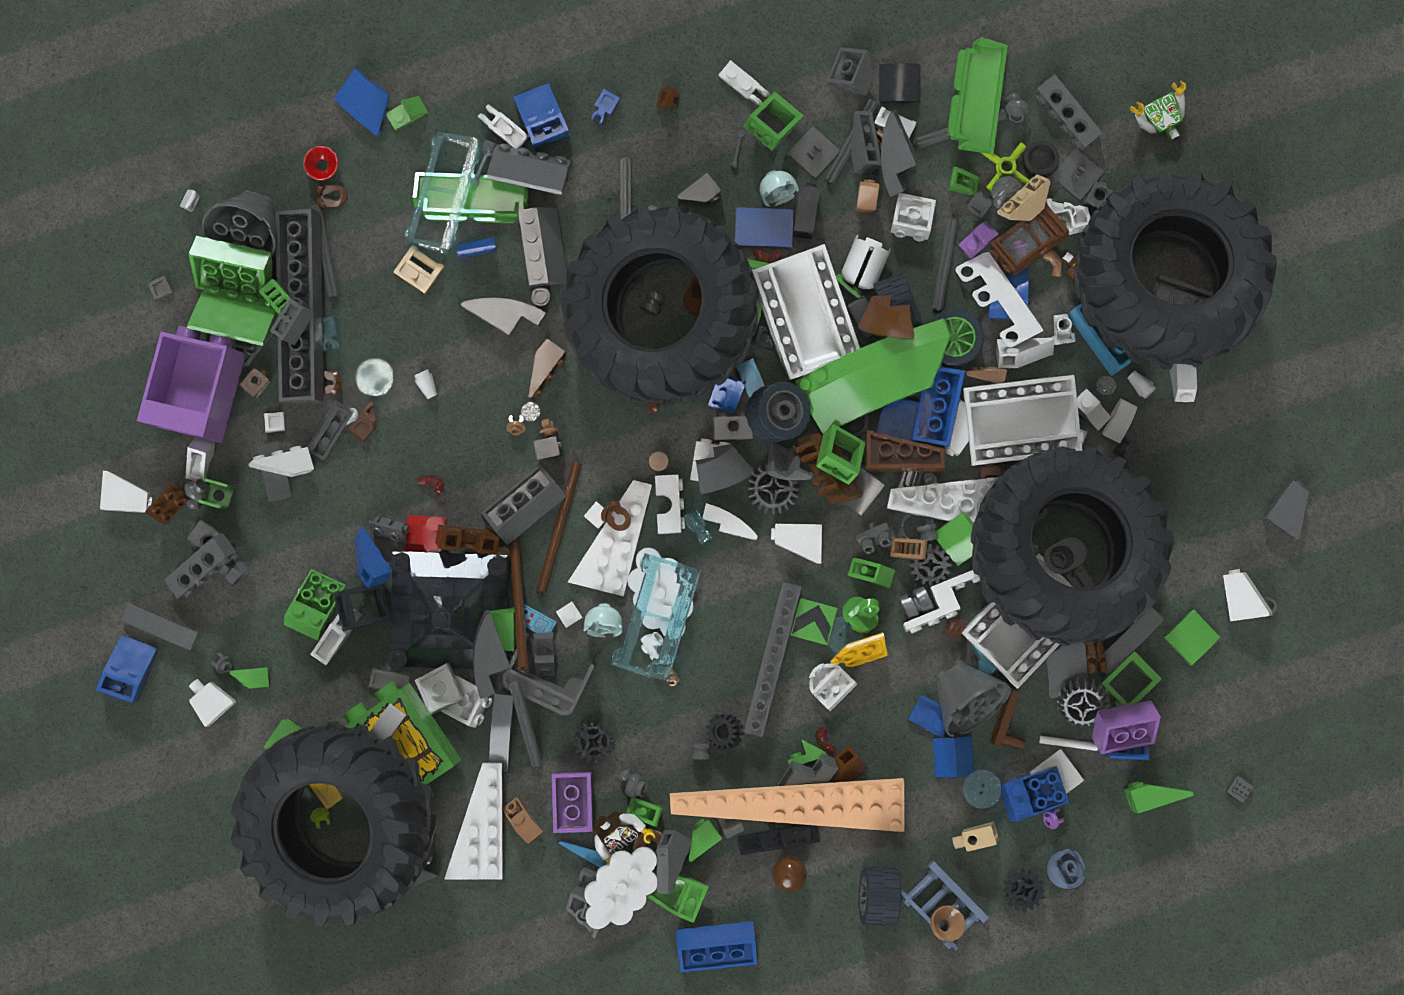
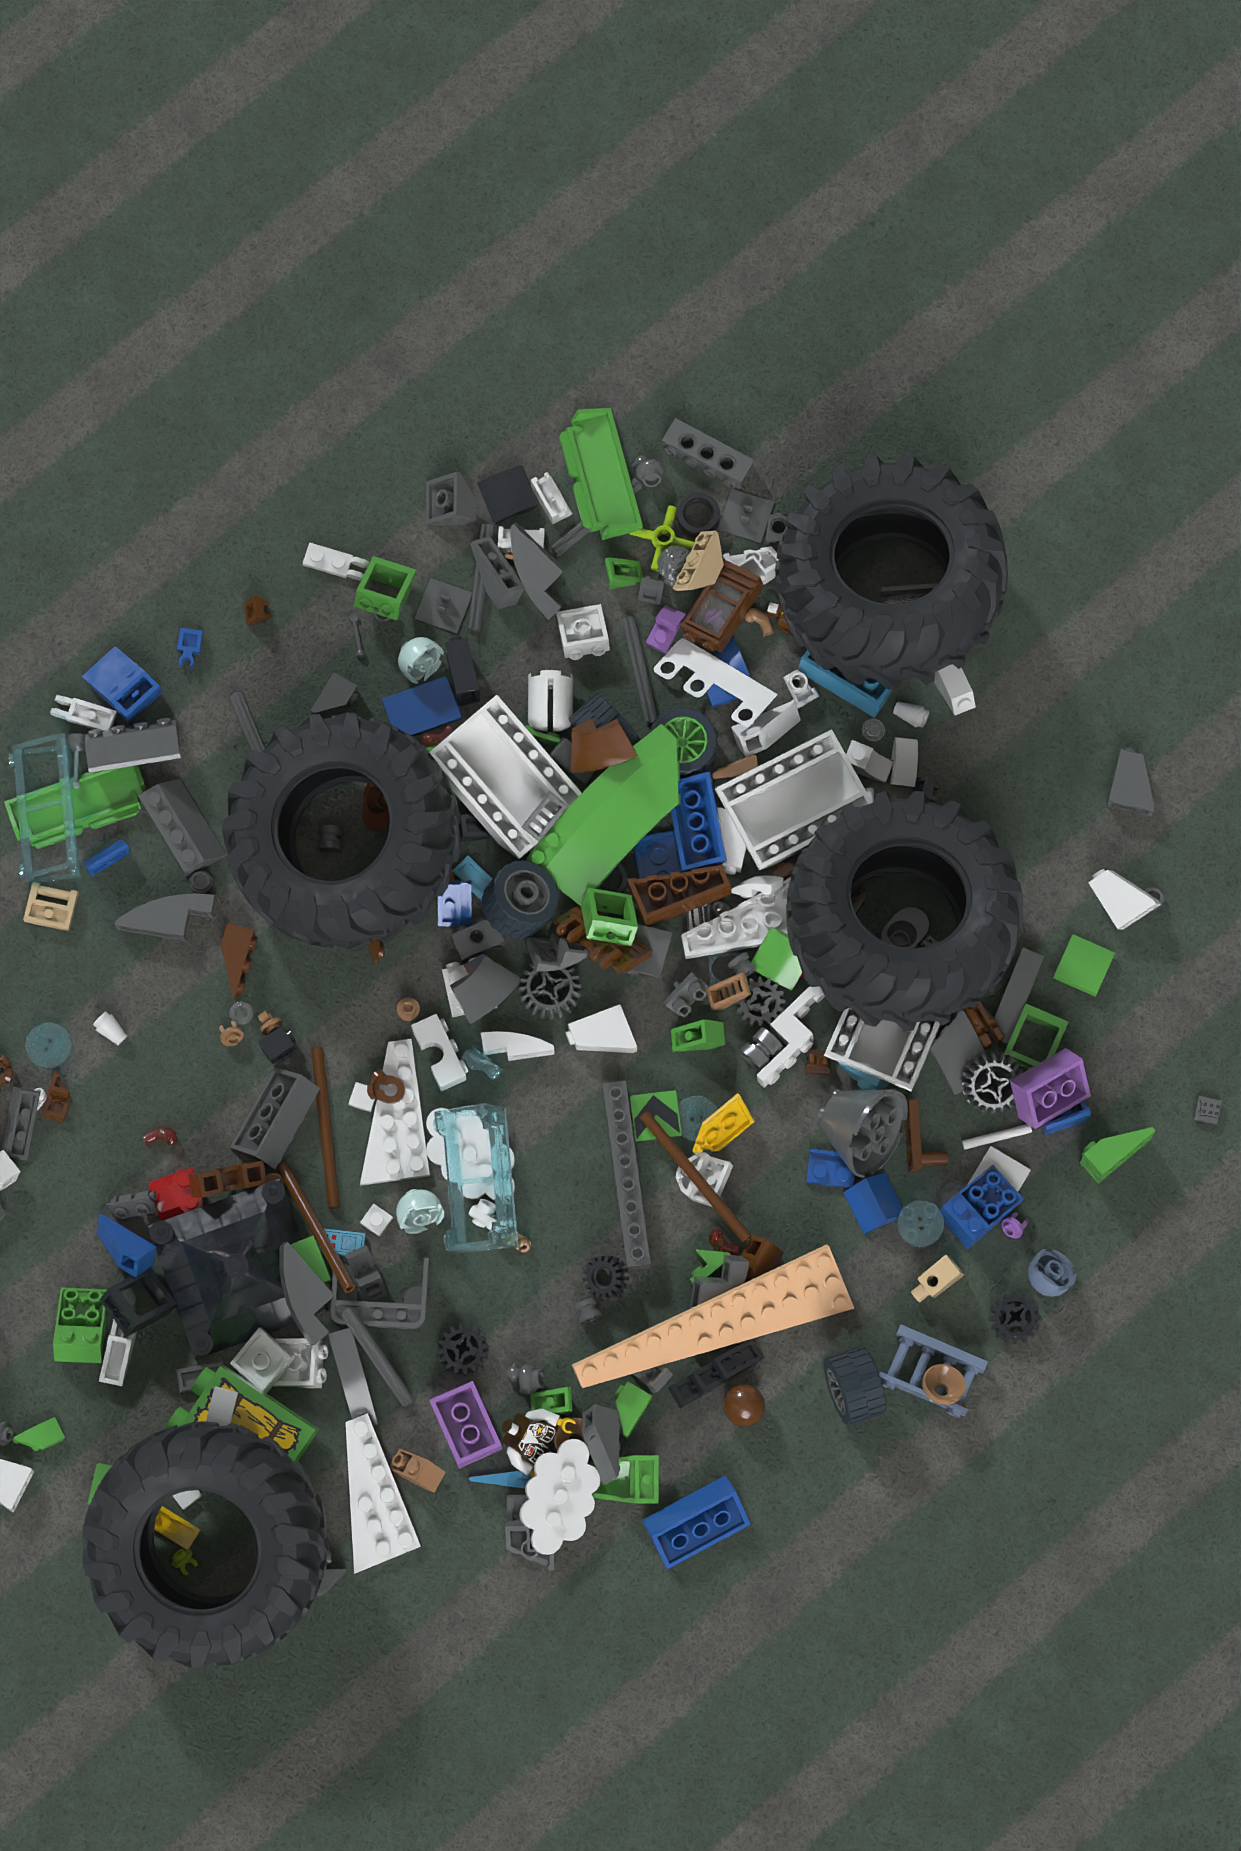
camera: 25 degrees left, 10 degrees down
(824, 683) = (695, 1176): none -> reddish brown piece
(833, 356) = (556, 814): none -> flat silver slope
(861, 614) = (706, 1084): bright green tile -> none
(867, 196) = (523, 629): medium nougat slope -> none
(931, 99) = (550, 498): none -> white hinge
(964, 472) = (754, 885): none -> white slope
(1163, 113) = (812, 414): torso -> none

